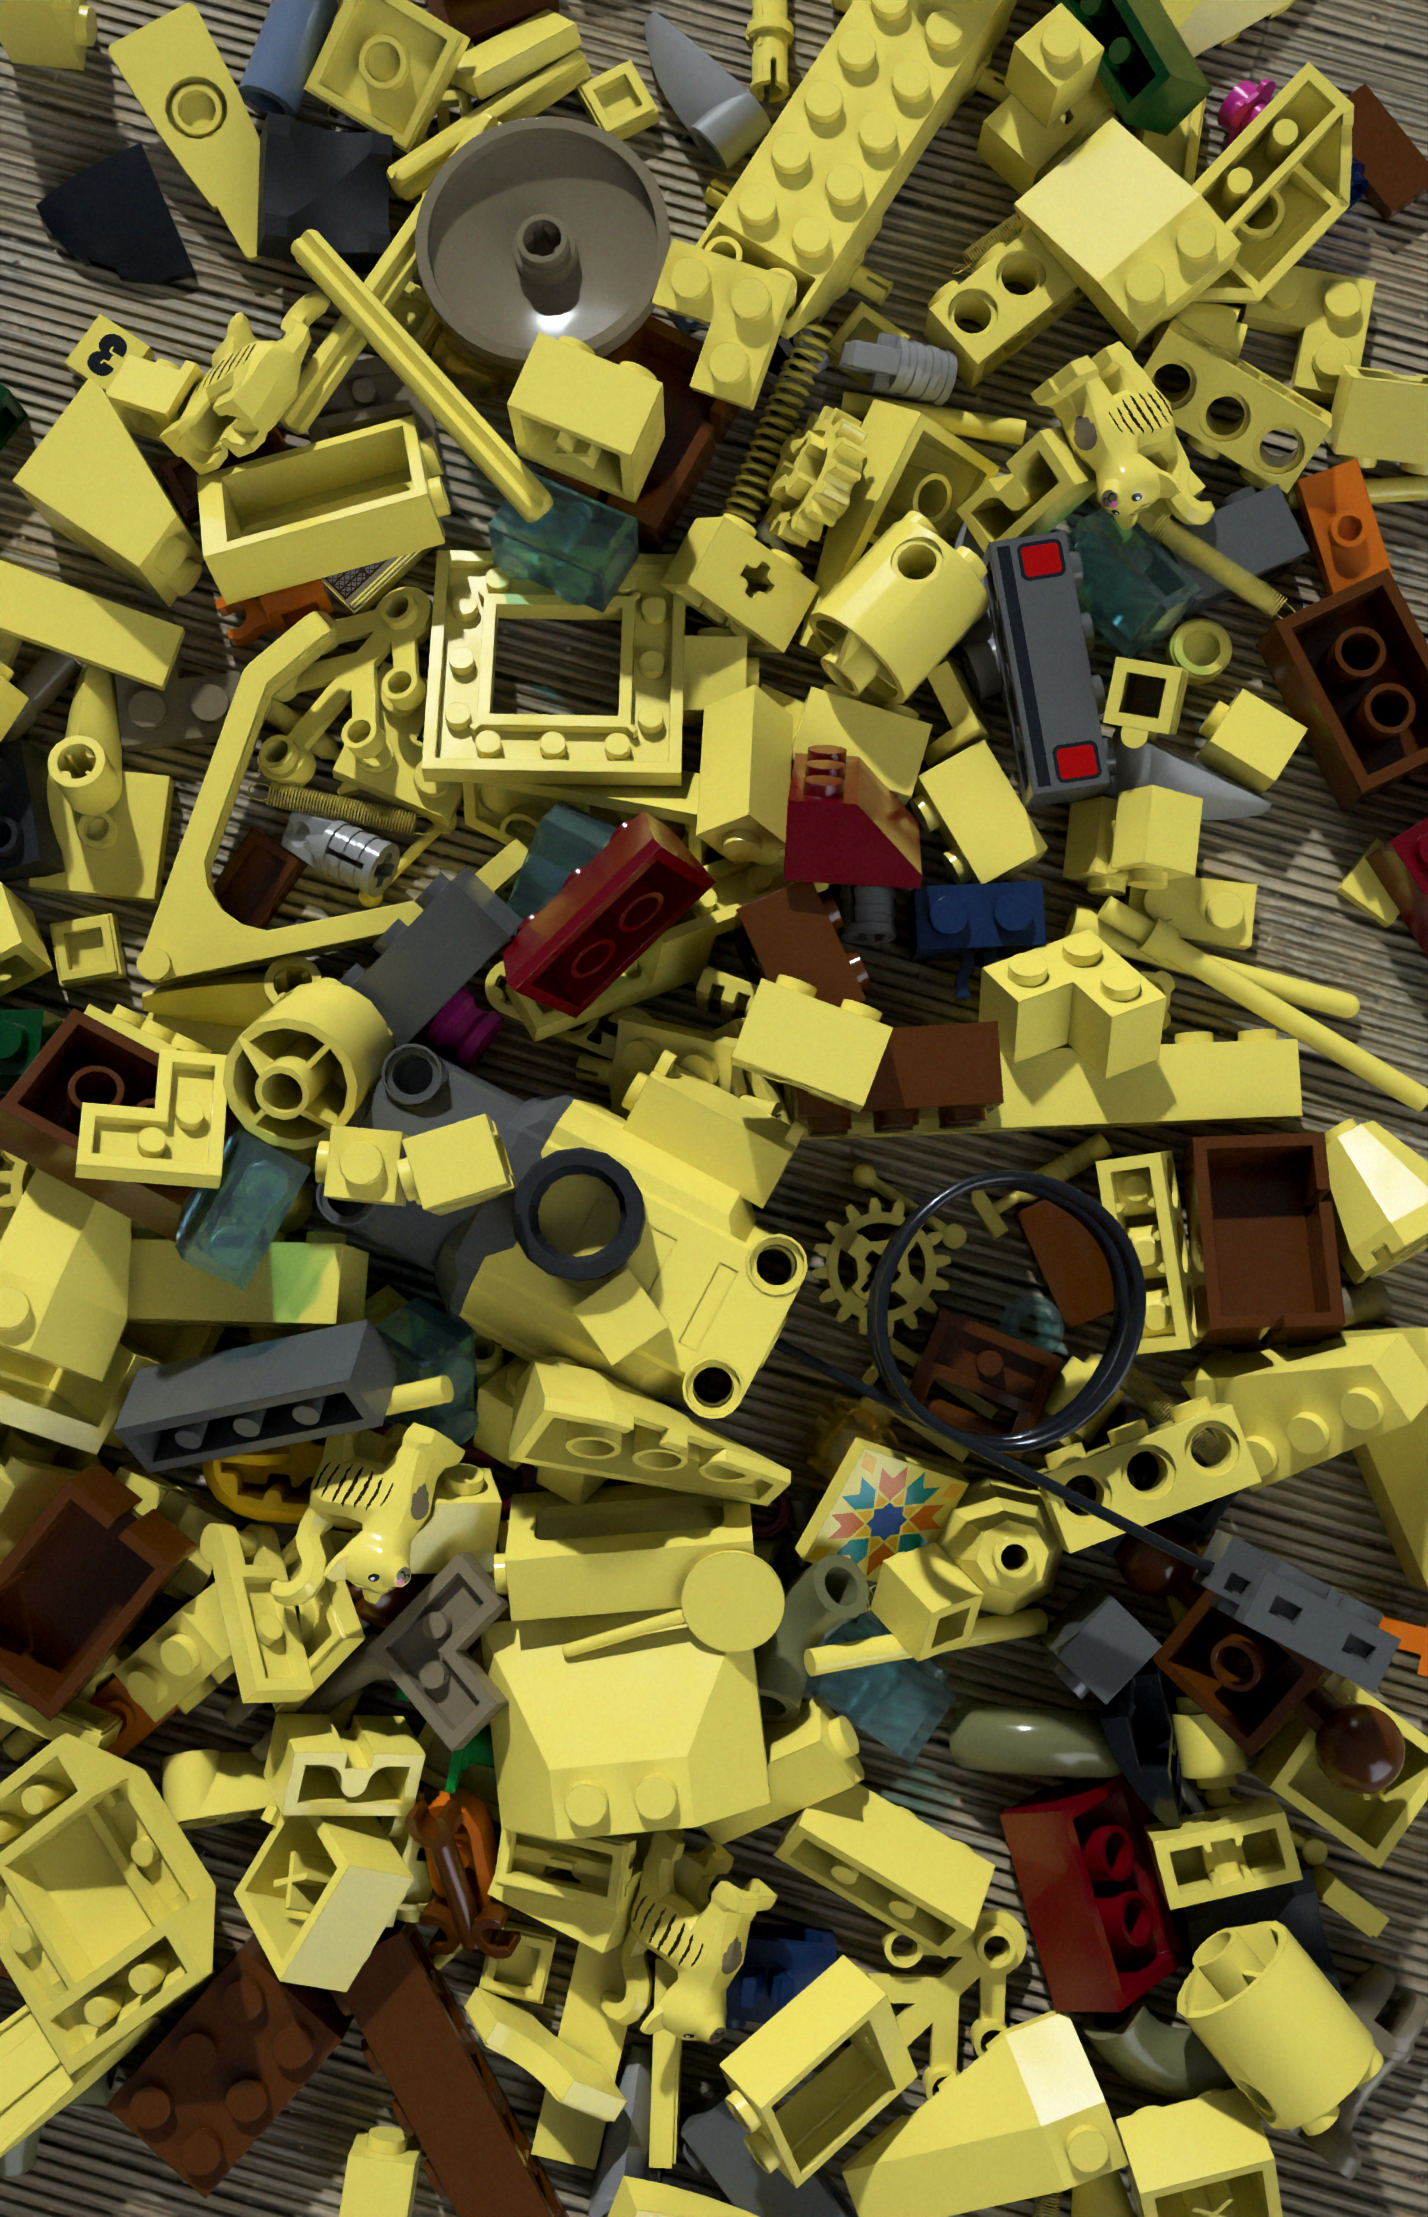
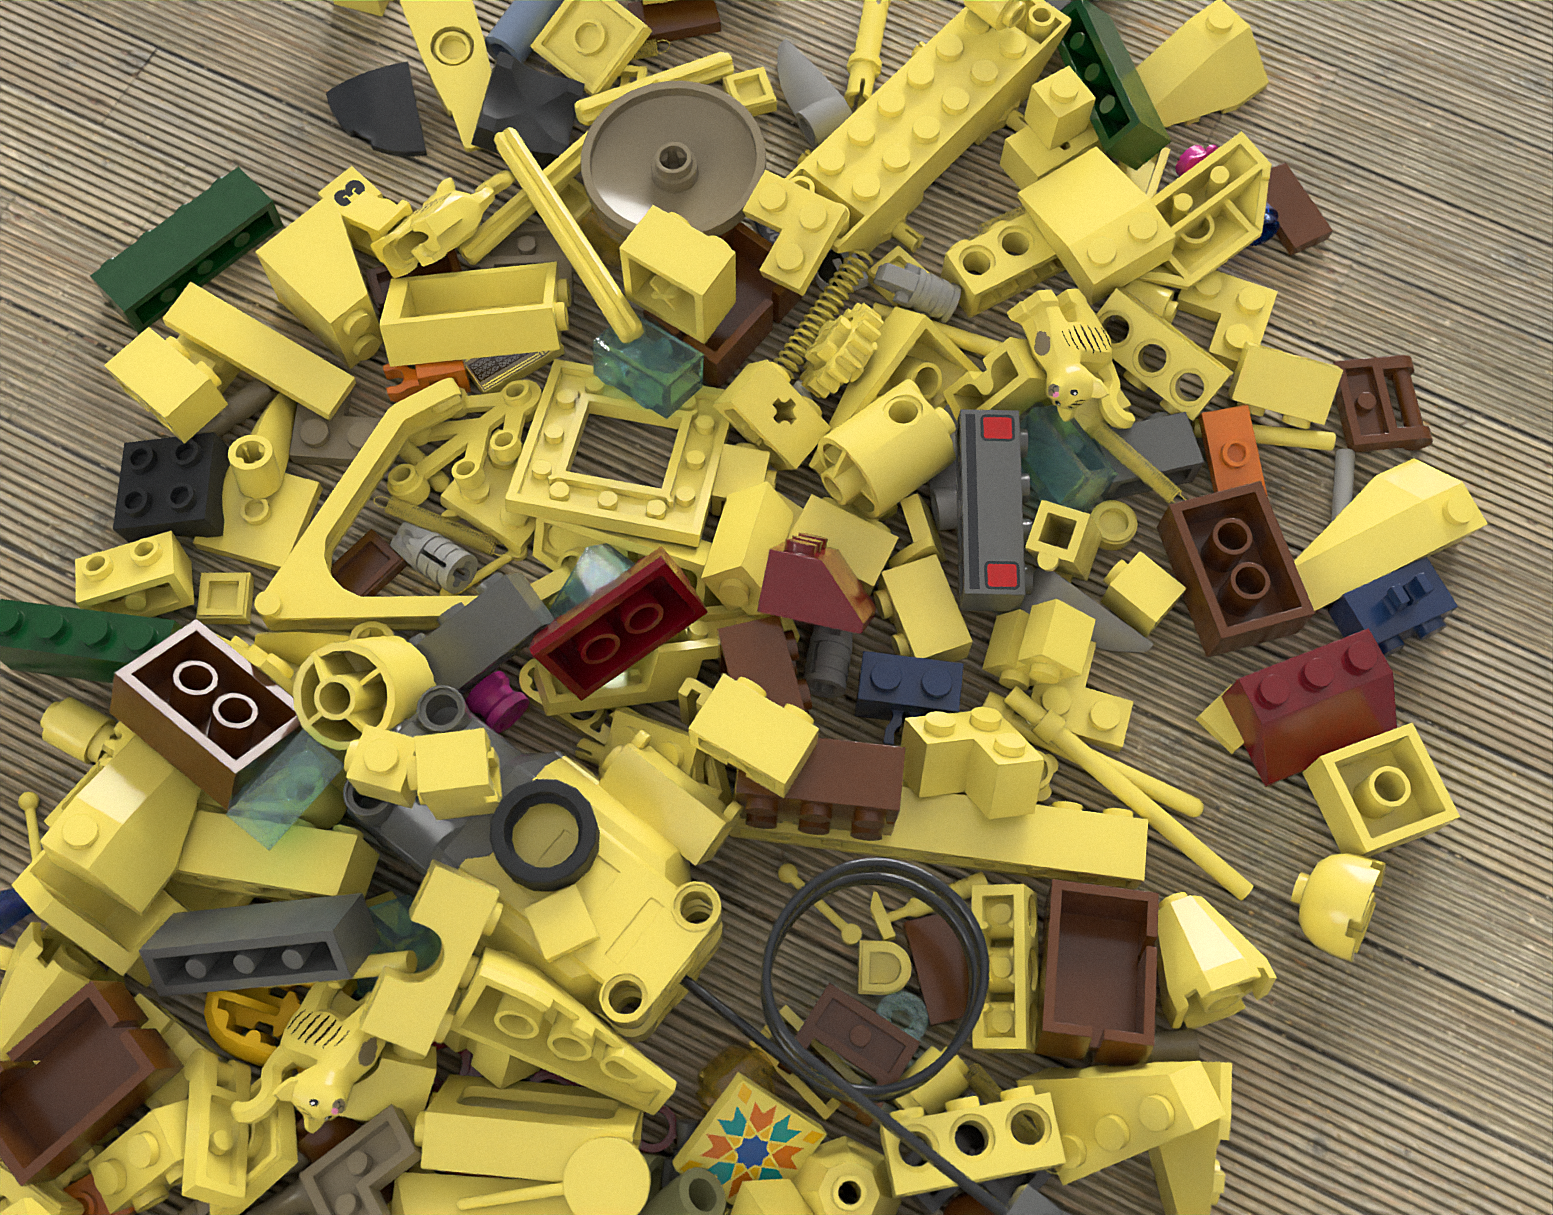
camera: 10 degrees right, 15 degrees down
(164, 1145) = (238, 723): light yellow plate -> none
(469, 1446) = (414, 1006): none -> light yellow arch
(516, 53) = (683, 49): light yellow tile -> none
(857, 1248) = (803, 962): light yellow gear -> none
(997, 1271) = (881, 967): none -> light yellow tile

